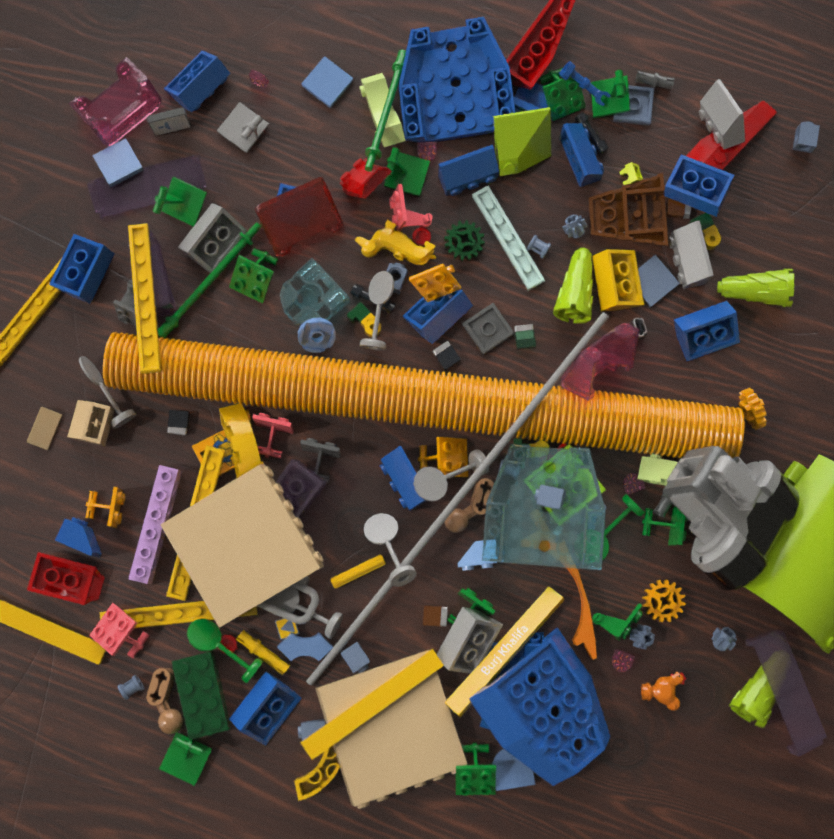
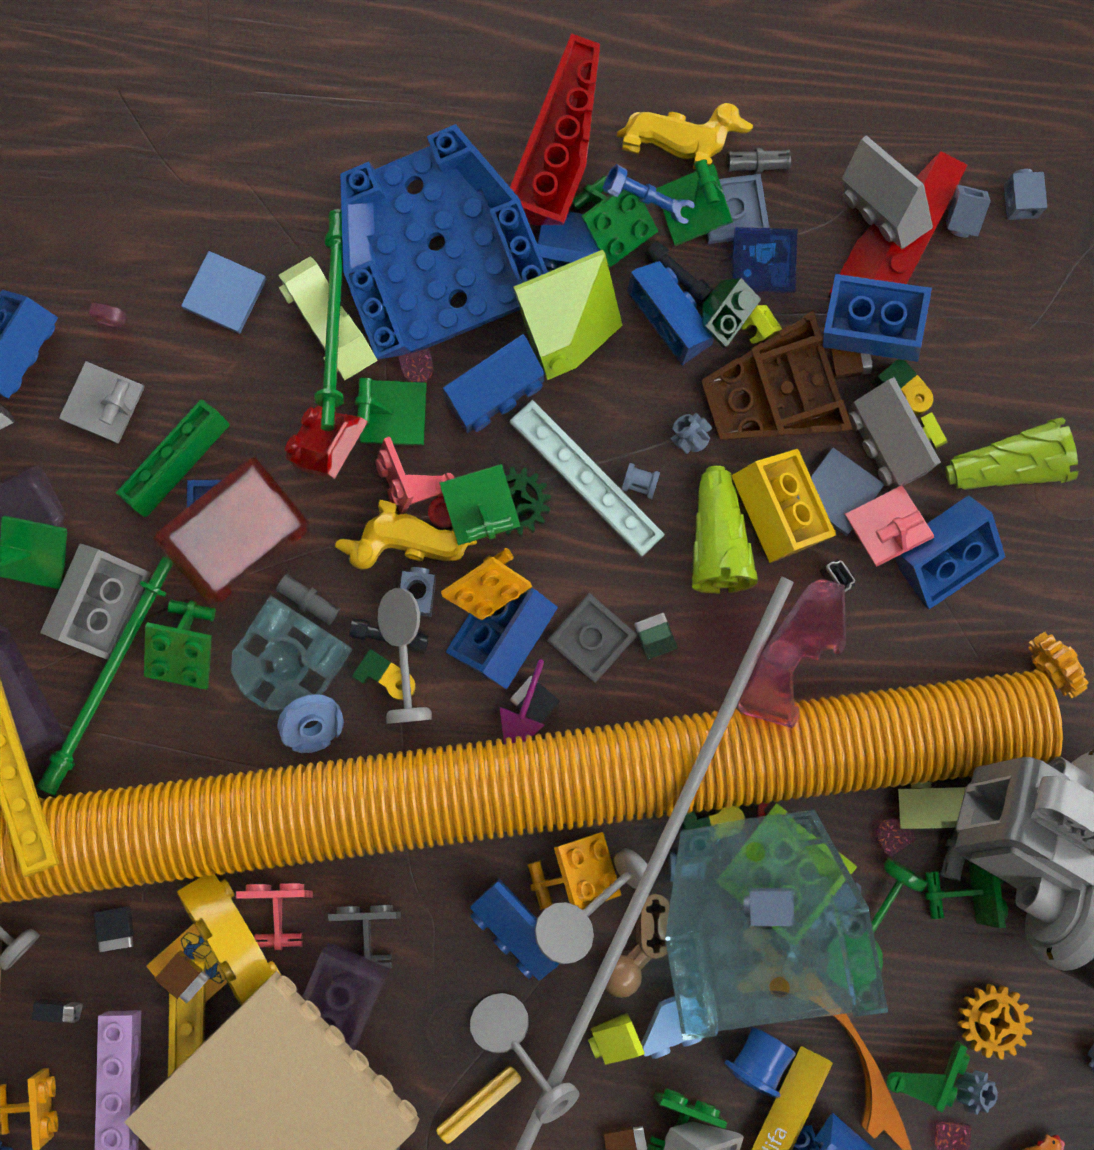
camera: 20 degrees left, 0 degrees up
(136, 458) = (56, 1011): none -> black piece
(211, 455) = (182, 977): none -> reddish brown piece
(275, 169) = (173, 458): none -> green slope
(332, 266) = (307, 599): none -> dark grey pin
(431, 364) = (517, 724): none -> magenta piece
(443, 235) = (480, 504): none -> green plate
(444, 554) = (616, 1040): none -> neon yellow slope
(523, 588) = (761, 1062): none -> blue piece
(612, 55) = (682, 137): none -> yellow animal
(614, 160) = (728, 309): none -> dark green slope
(643, 138) = (766, 258): none -> clear blue tile
(675, 306) = (889, 525): none -> coral plate
(715, 259) = (933, 430): none -> neon yellow tile
(769, 138) = (967, 211): none -> sand blue brick

